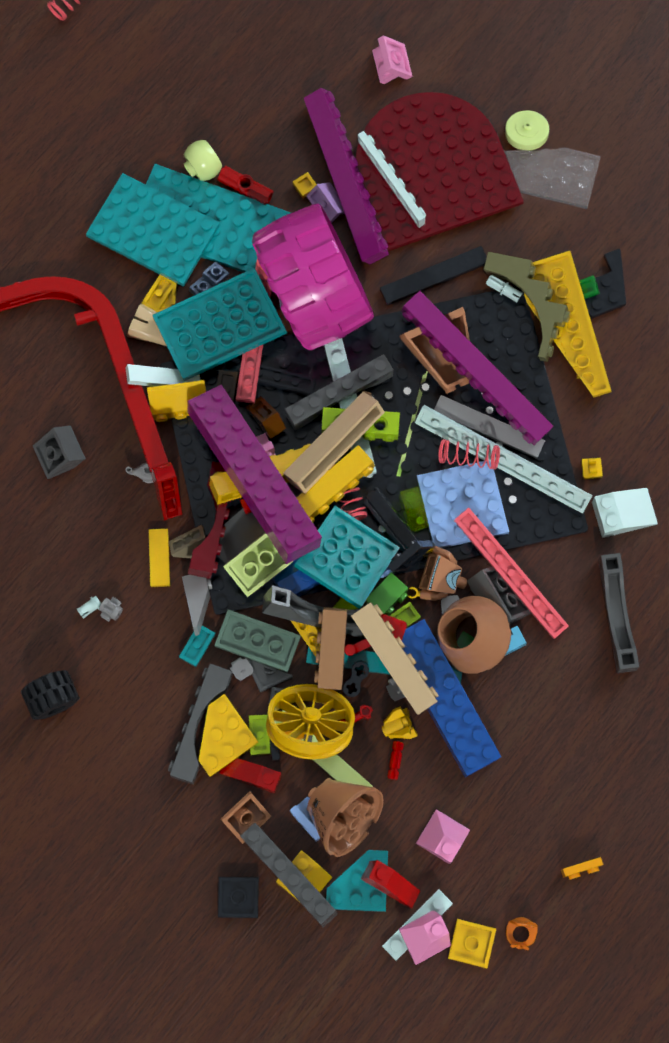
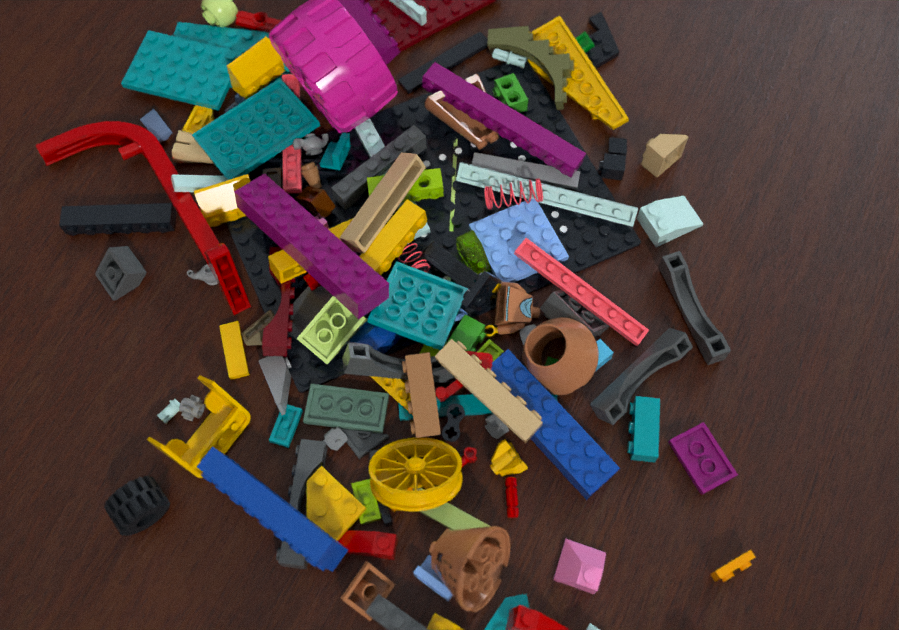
camera: 10 degrees left, 10 degrees down
(63, 391) = (118, 218): none -> black brick
(115, 290) = (156, 125): none -> sand blue slope
(126, 640) = (218, 430): none -> yellow windscreen
(172, 726) = (272, 511): none -> blue brick
(229, 252) = (255, 68): none -> yellow slope
(267, 385) = (311, 174): none -> medium nougat cone
(274, 349) = (311, 143): none -> light grey piece
(296, 366) = (336, 153): none -> teal panel
(497, 335) = (510, 93): none -> bright green brick
(536, 723) = (644, 429): none -> teal brick
(577, 651) = (615, 398): none -> dark grey arch
(580, 440) = (612, 166): none -> black brick
(584, 763) = (702, 458): none -> magenta plate
(591, 468) = (628, 189): yellow tile -> none
(593, 417) = (617, 146): none -> black tile
(636, 438) = (663, 152): none -> tan slope

